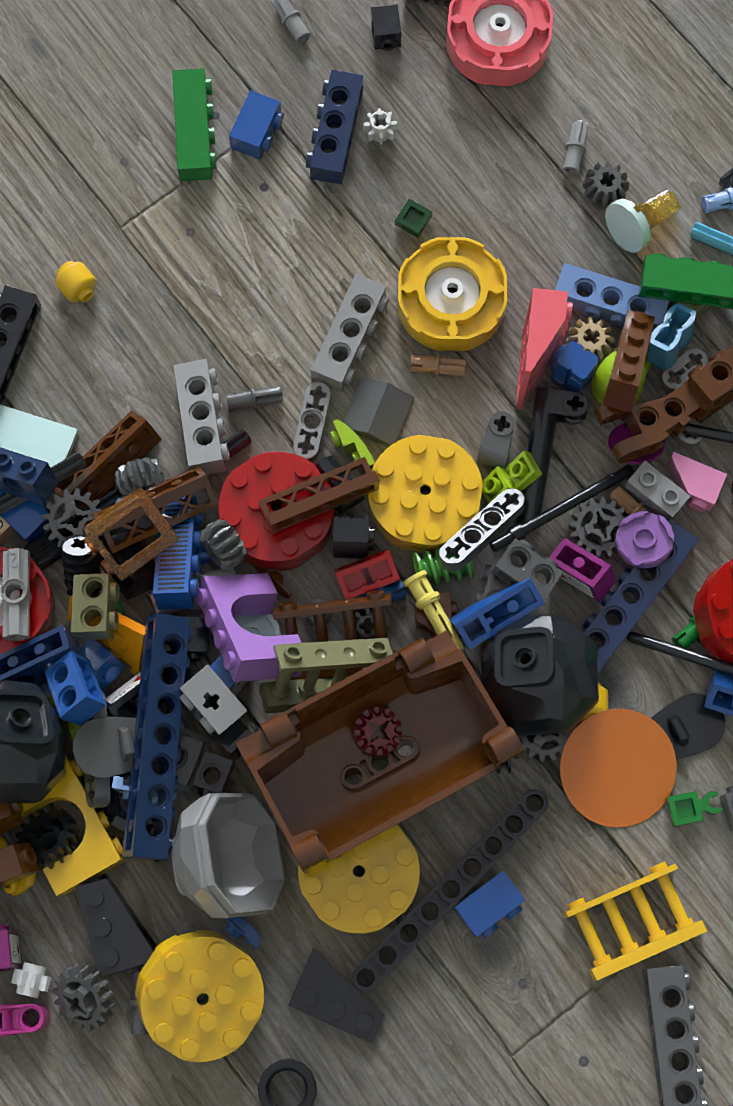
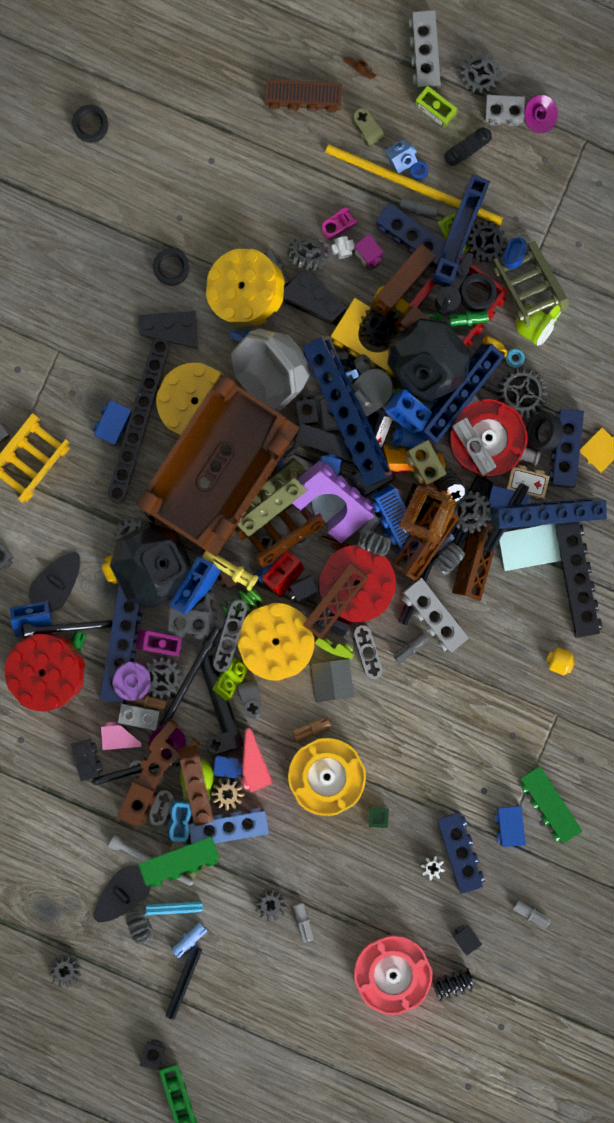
camera: 150 degrees right, 10 degrees up
(209, 683) = (315, 446): light grey brick -> none
(360, 293) = (378, 689): light grey brick -> none
(363, 731) = (229, 488): dark red gear -> none
(618, 768) = (79, 540): orange sticker -> none
(627, 226) = (238, 878): light aqua tile -> none
(659, 208) = (231, 903): clear yellow piece -> none
(688, 809) = (28, 539): green plate -> none

